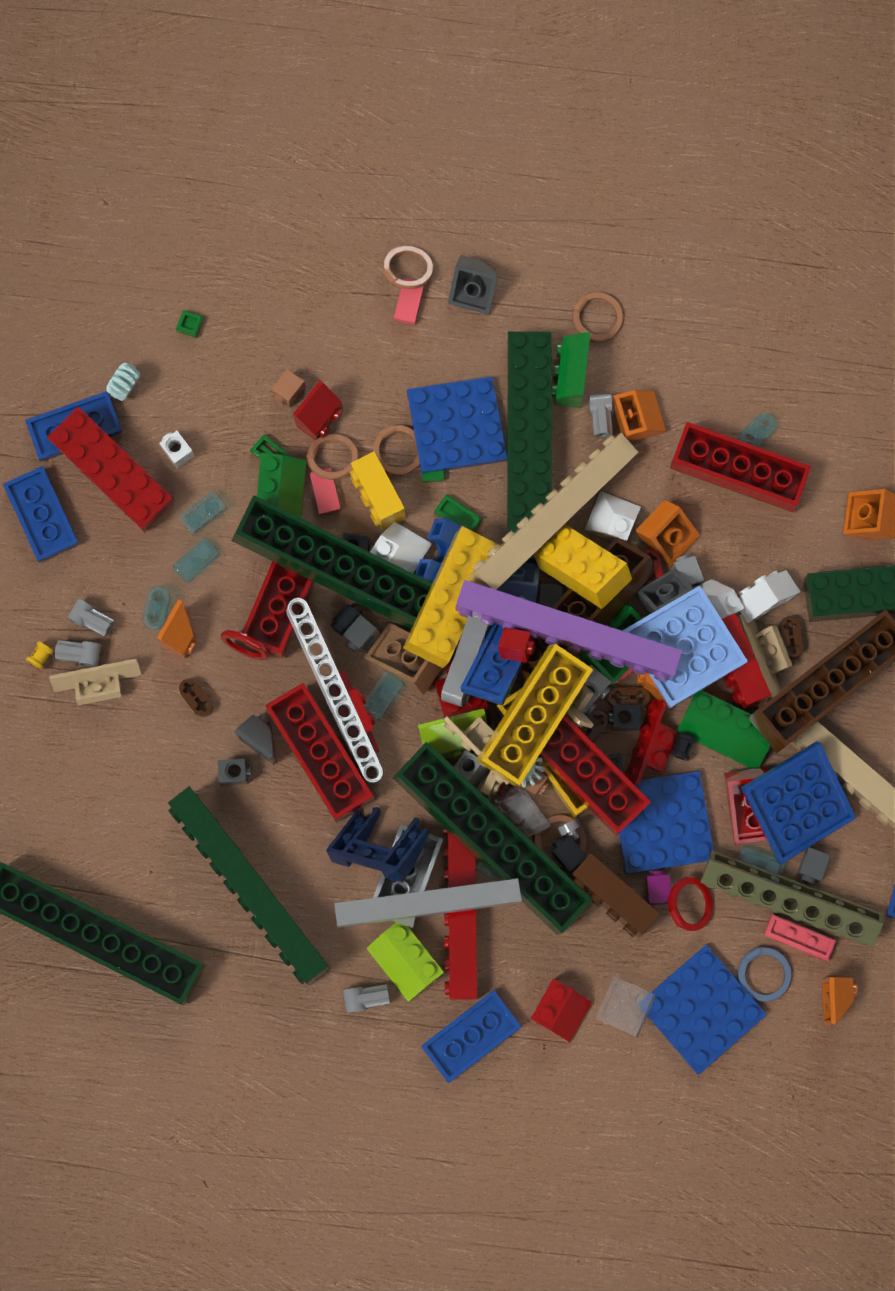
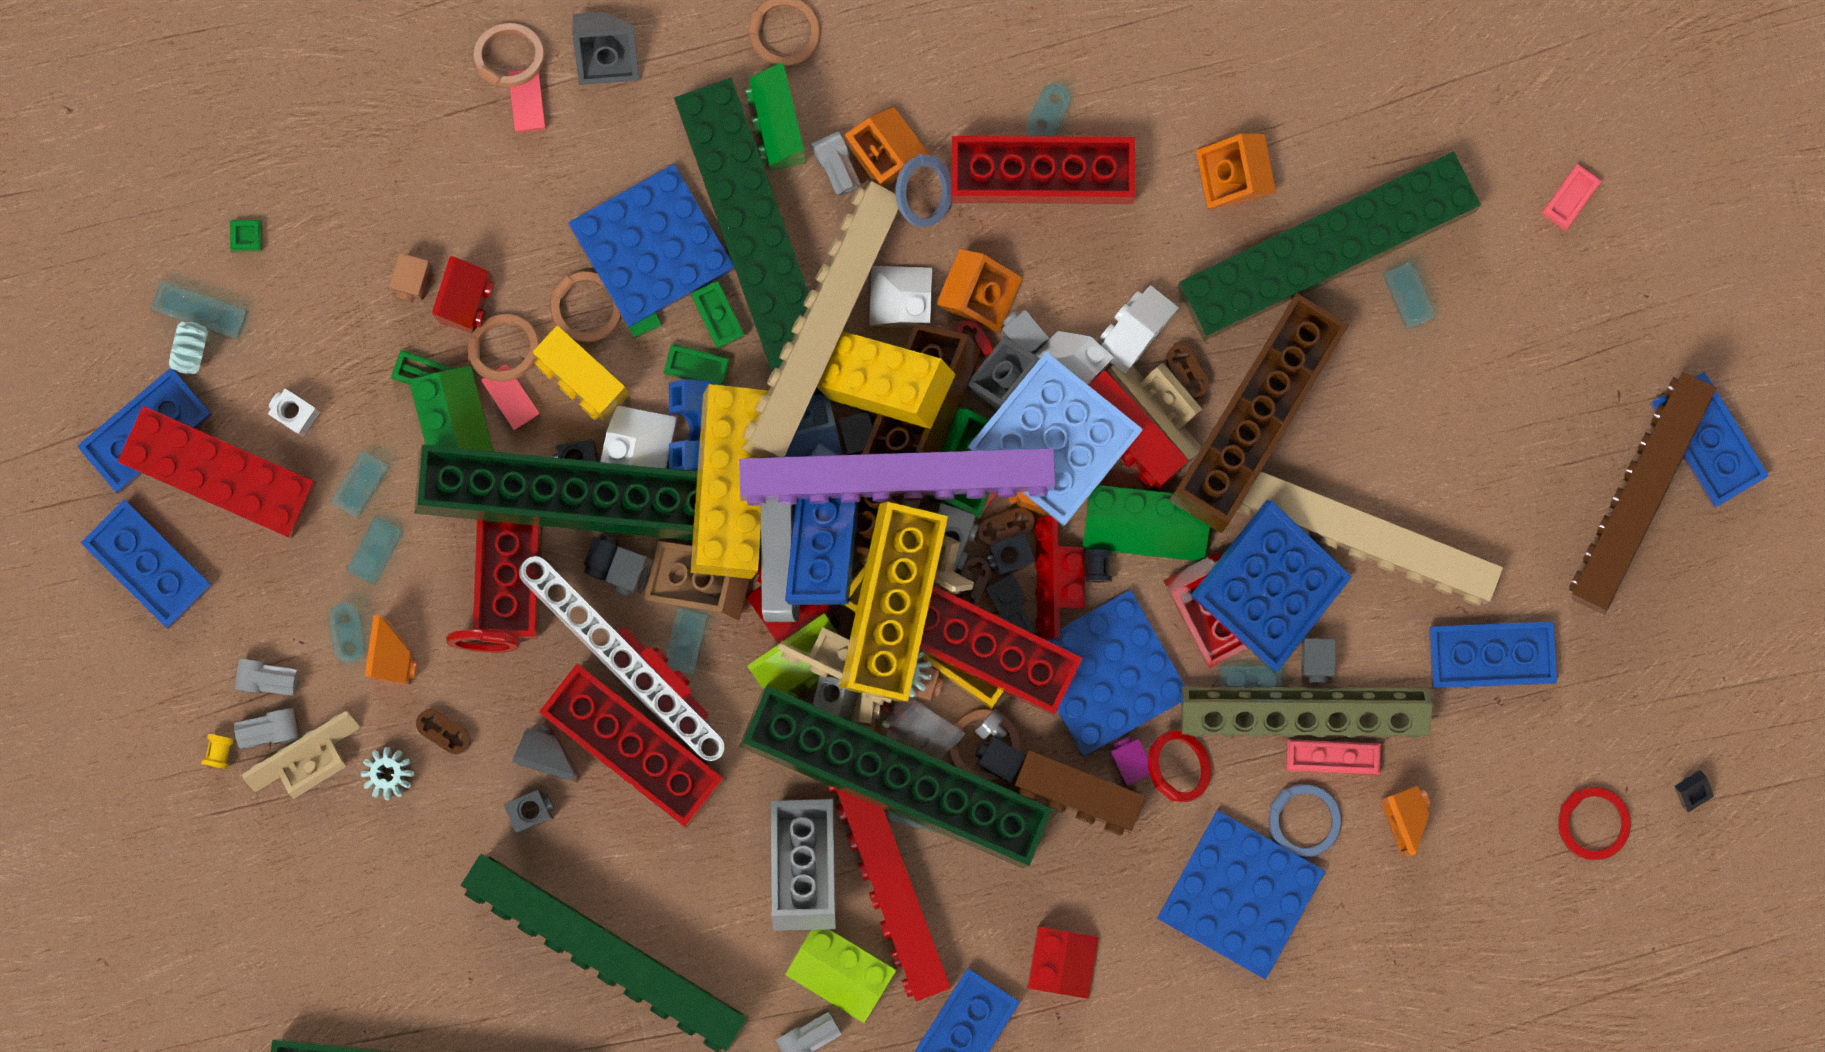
camera: 20 degrees left, 5 degrees up
(140, 717) = (384, 784): none -> light aqua gear
(145, 363) = (200, 309): none -> clear light blue plate
(395, 863) = (783, 856): dark blue wedge -> none
(427, 903) = (844, 892): light grey tile -> none
(484, 486) = (717, 315): none -> green plate
(516, 645) = (837, 519): red brick -> none
(612, 743) = (1006, 594): none -> black plate
(625, 1006) = (1143, 927): clear plate -> none
(670, 453) = (901, 186): none -> sand blue piece

